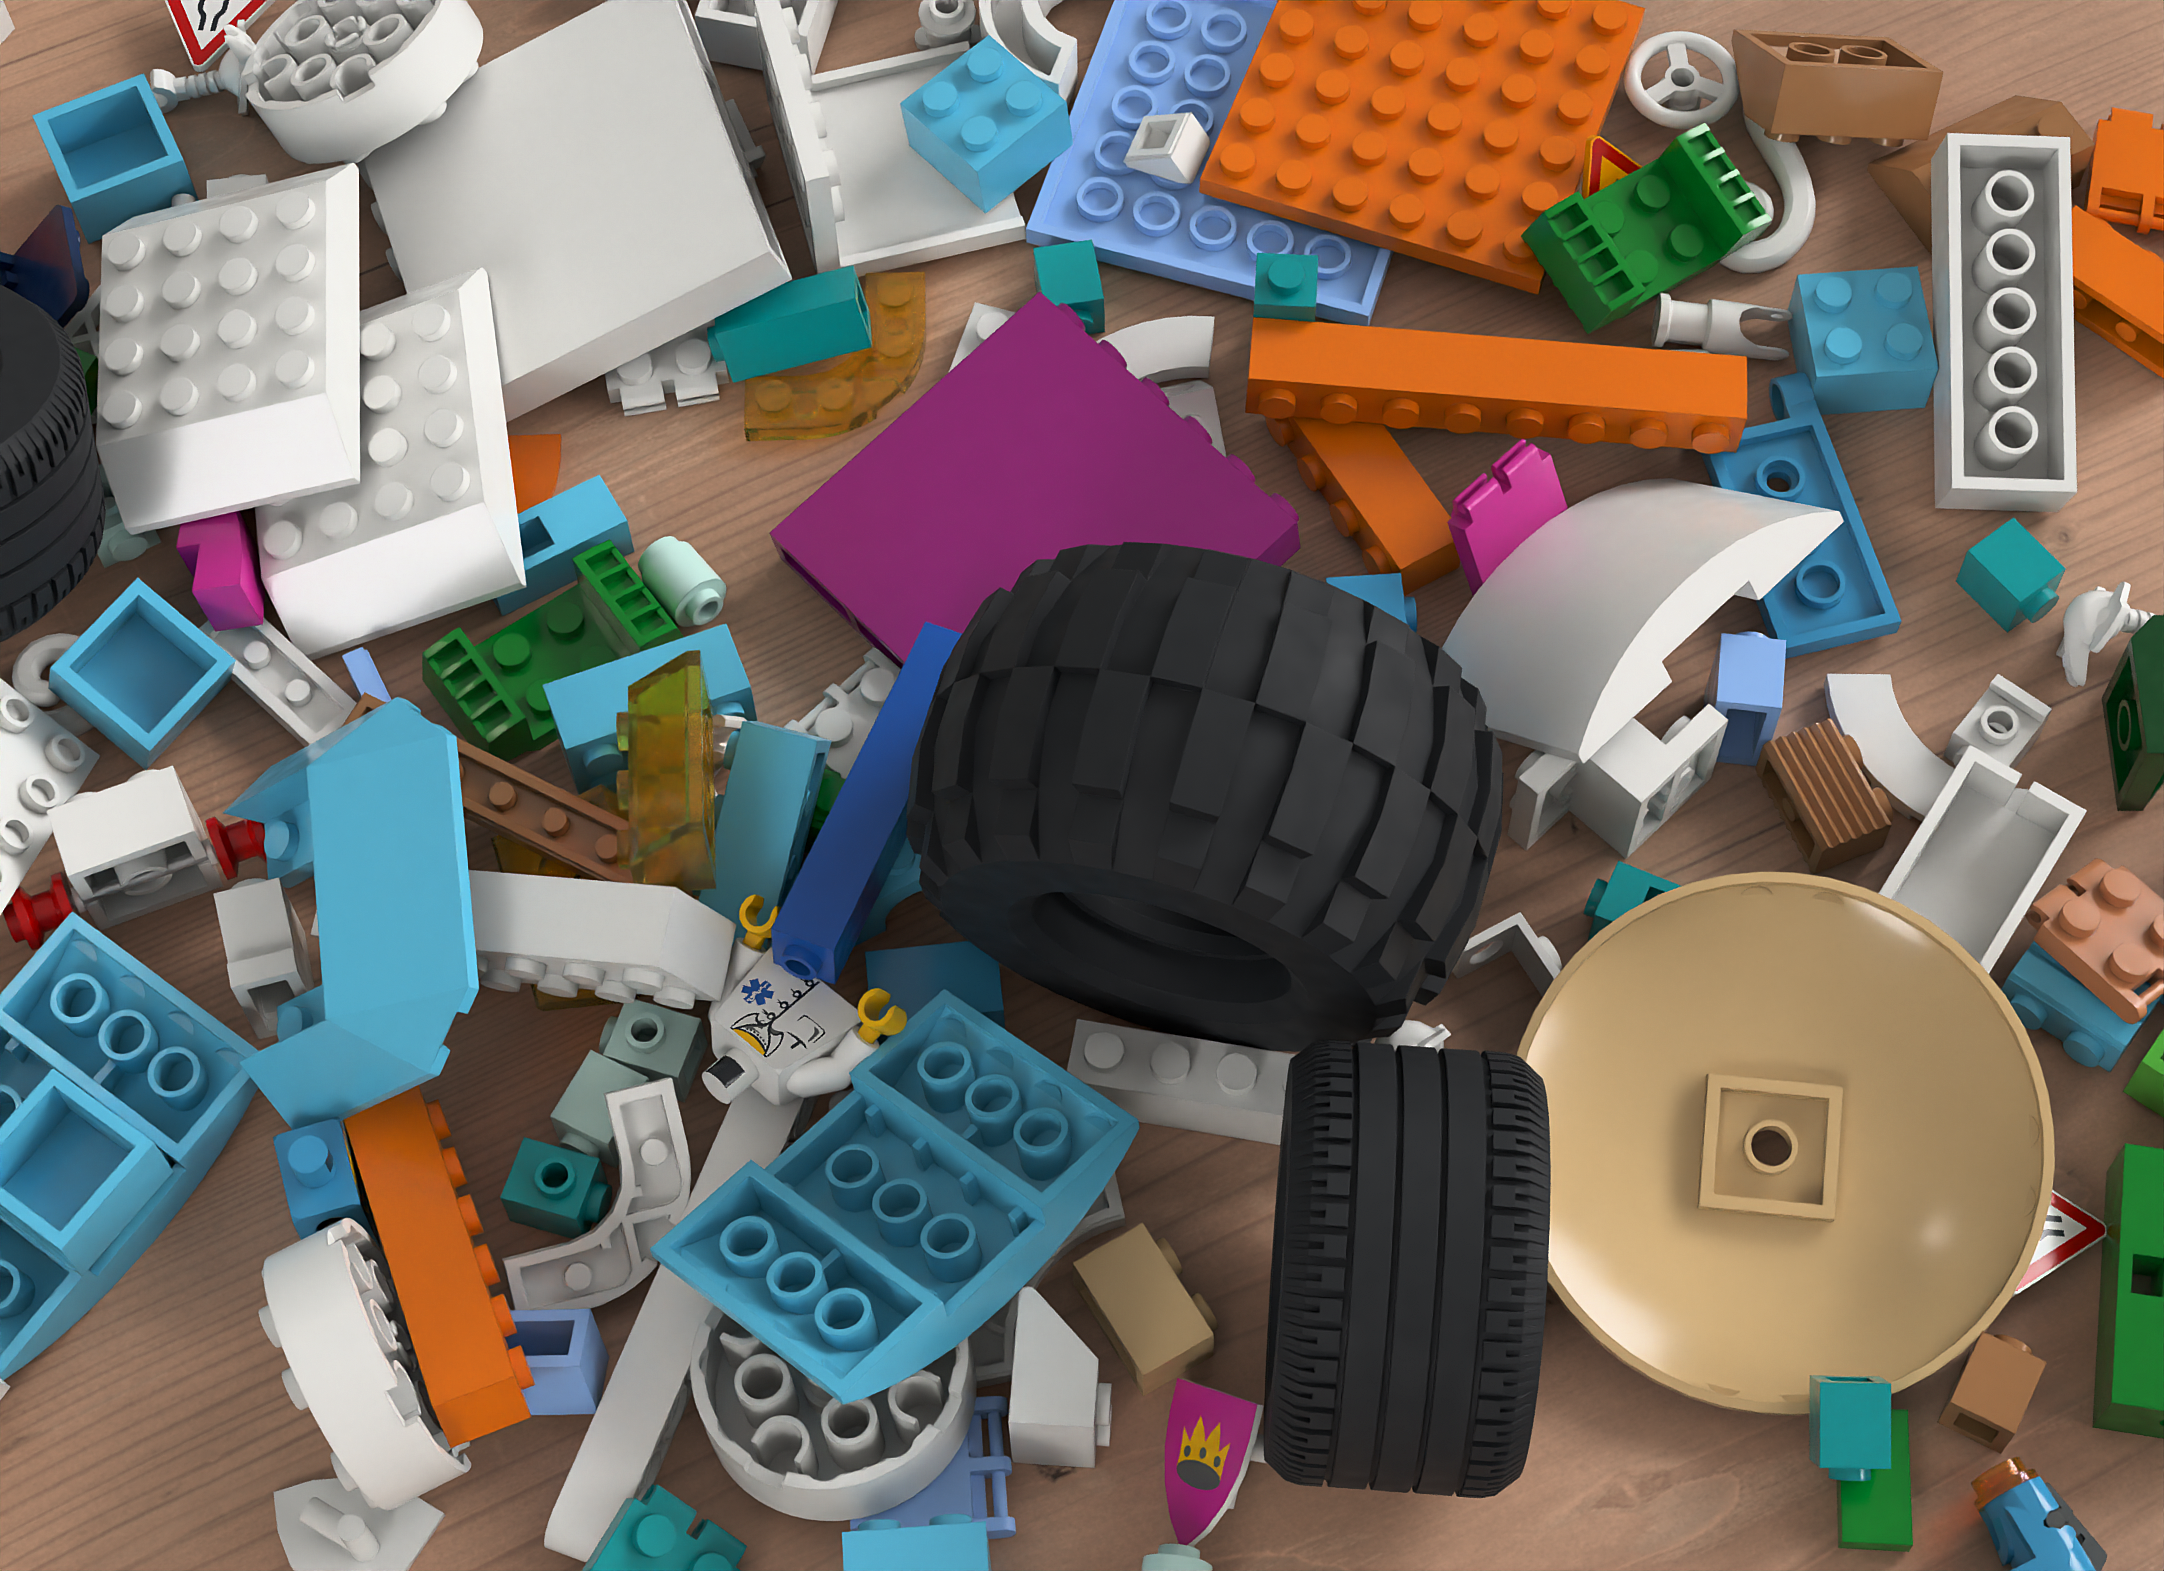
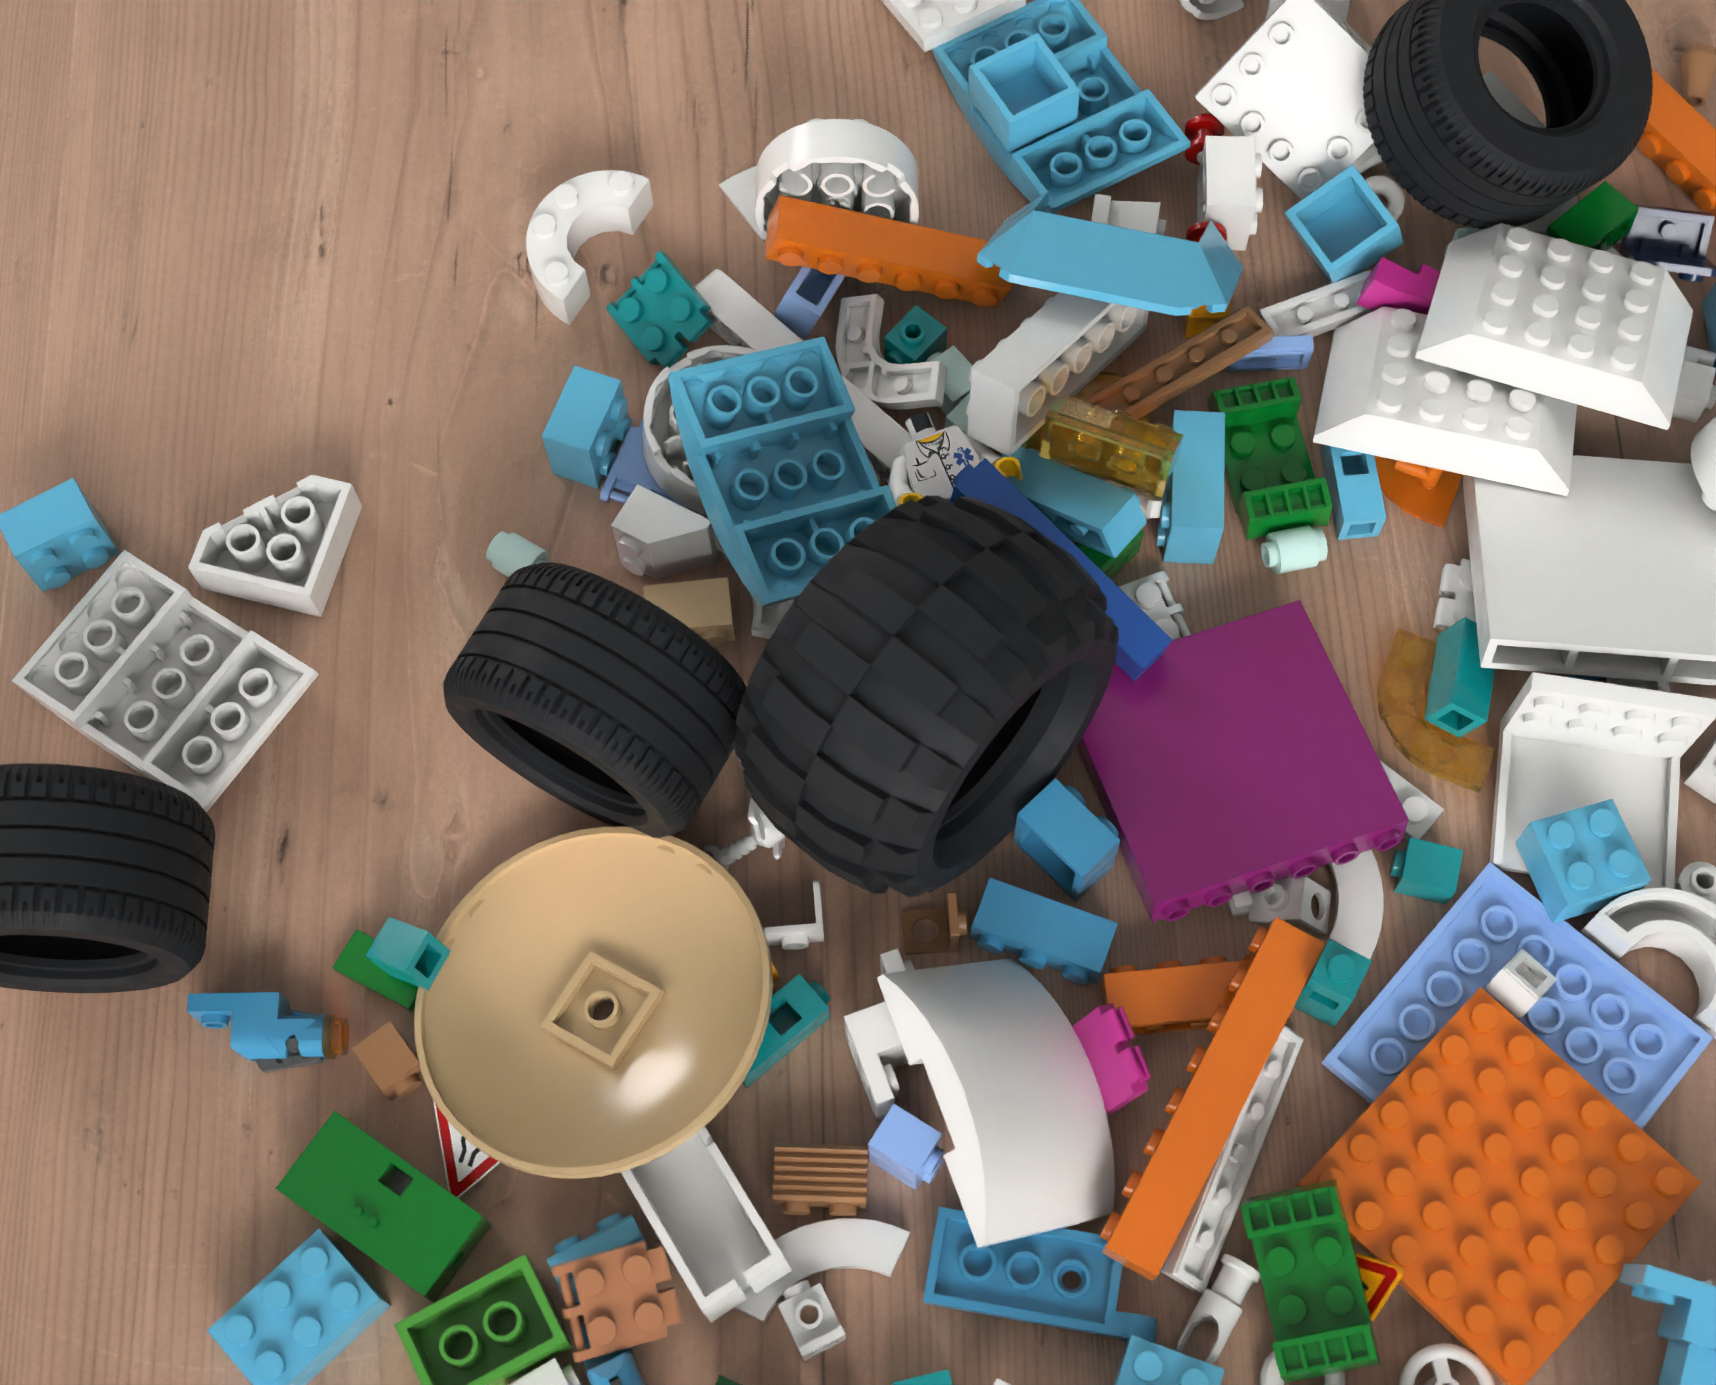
camera: 115 degrees right, 5 degrees up
(322, 1178) = (968, 213): dark azure torso -> none

